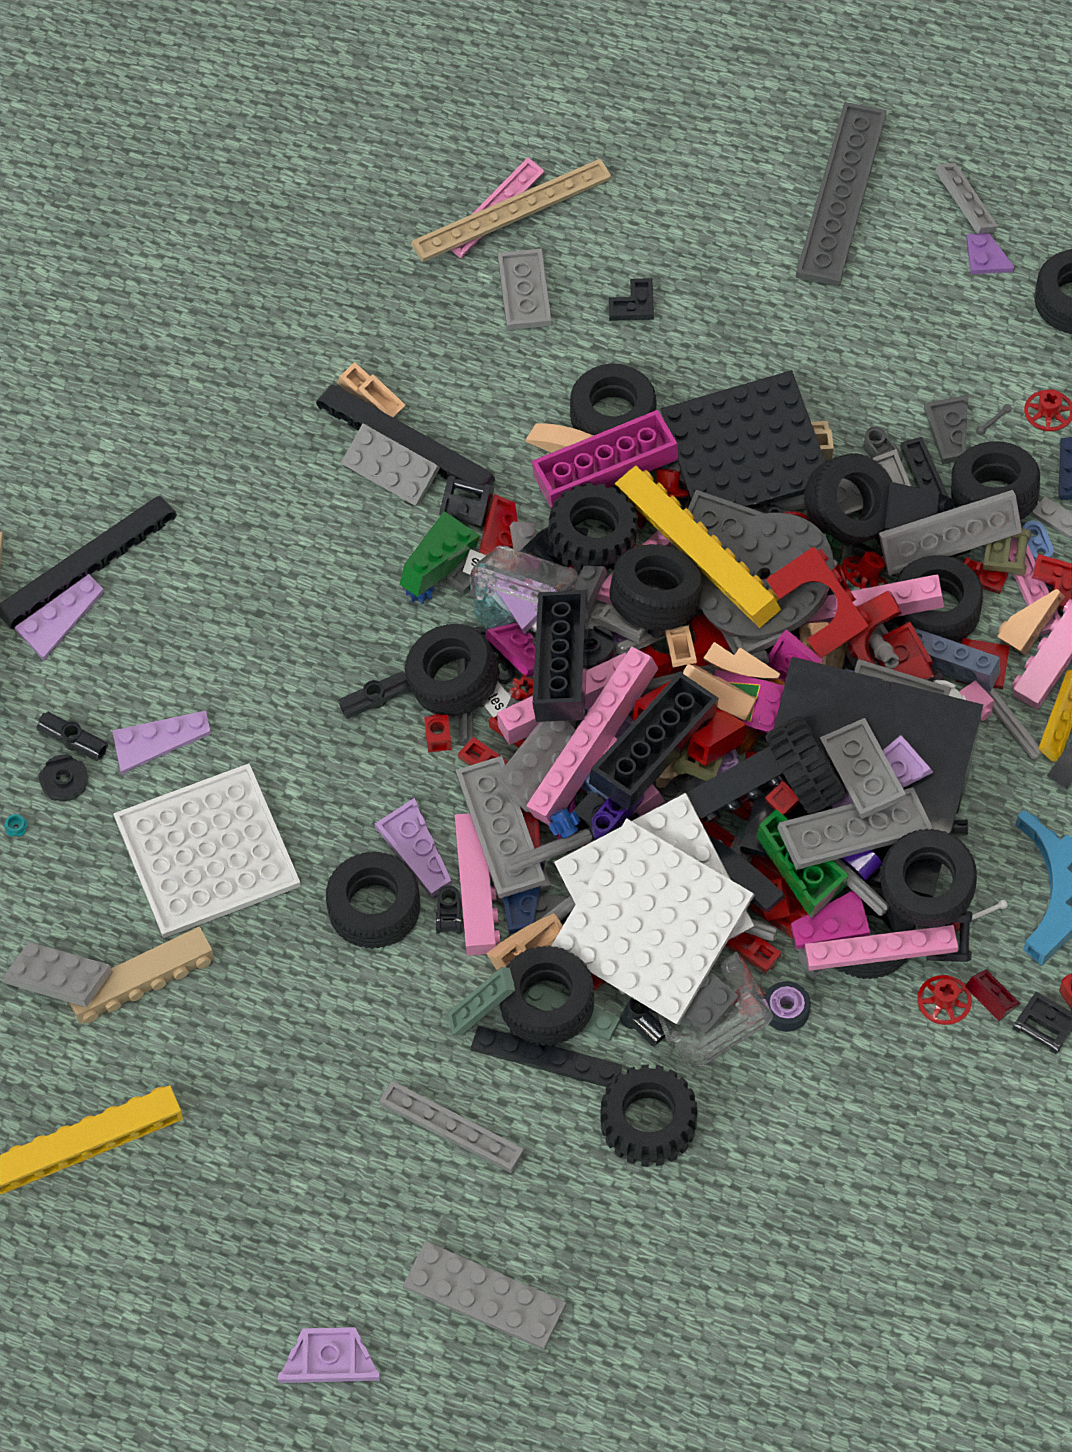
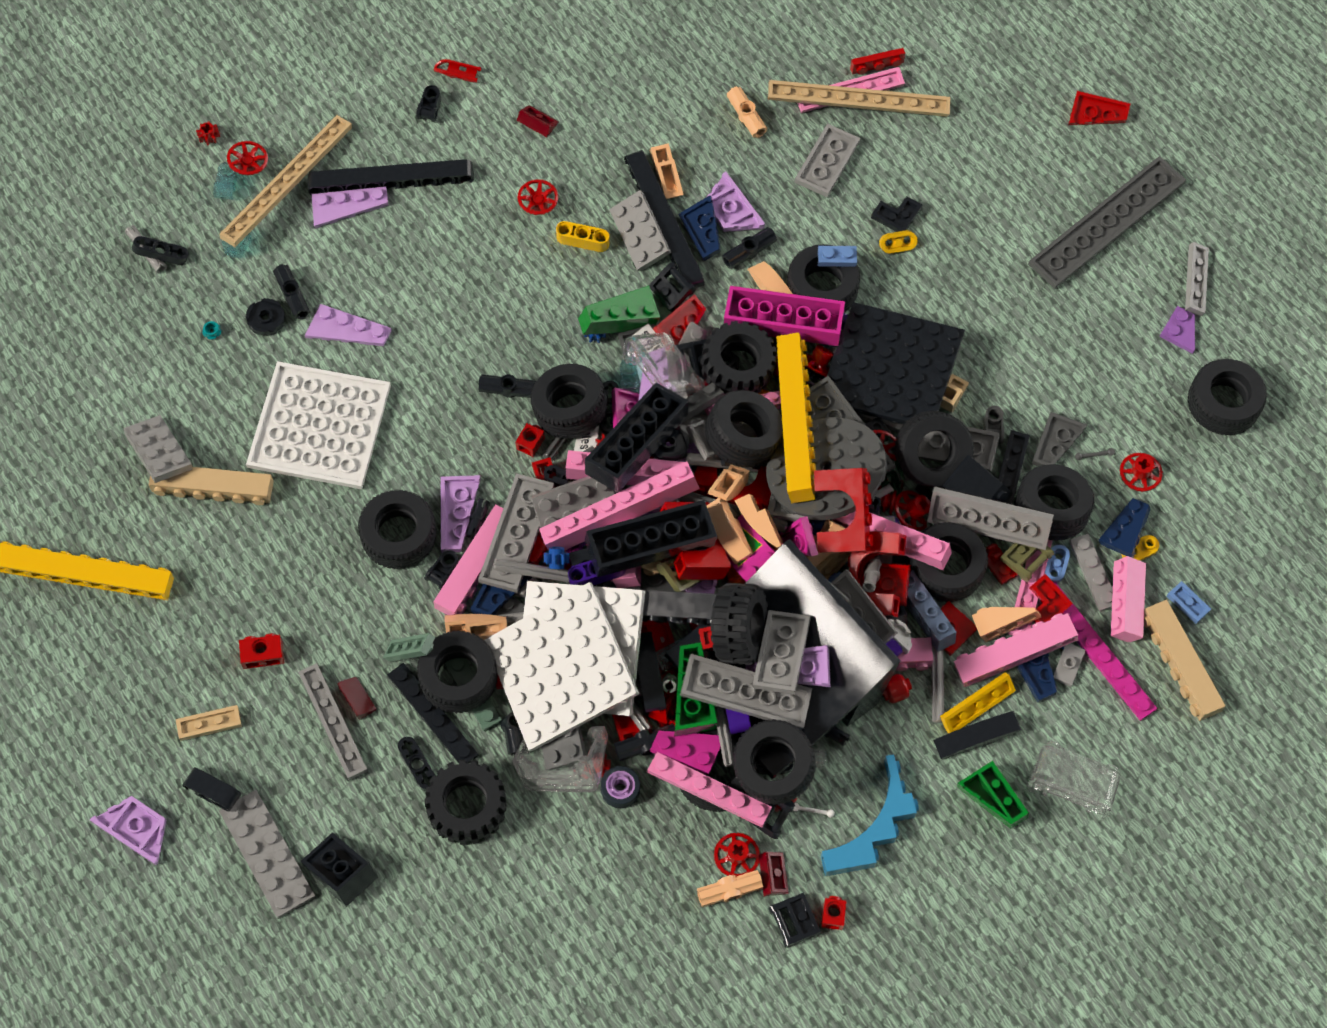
camera: 30 degrees right, 5 degrees up
(69, 419) = (454, 72): none -> red piece
(71, 467) = (429, 107): none -> black piece
(195, 418) = (537, 120): none -> dark red slope
(261, 495) = (538, 200): none -> red wheel
(321, 1118) = (272, 656): none -> red brick
(324, 1208) = (208, 723): none -> tan plate
(343, 497) = (575, 231): none -> yellow beam
(382, 1268) = (212, 789): none -> black beam
(407, 287) = (742, 105): none -> light nougat piece
(444, 841) = (478, 518): none -> black pin
(450, 425) = (702, 227): none -> dark blue wing
(456, 1089) = (356, 697): none -> dark red slope
(463, 389) = (732, 208): none -> lavender wing
(500, 748) = (559, 479): none -> black beam
(501, 164) = (877, 61): none -> red plate
(509, 428) = (741, 253): none -> black piece
(549, 1111) = (415, 748): none -> black beam
(571, 1260) = (339, 869): none -> black slope
(614, 372) = (837, 256): none -> medium blue plate
(654, 329) = (897, 241): none -> yellow plate
(751, 91) = (1095, 109): none -> red wing
(770, 871) = (673, 678): none -> light grey pin
(779, 949) = (639, 744): none -> black piece
(963, 1032) = (729, 888): none -> light nougat piece
(983, 750) = (897, 689): none -> red head

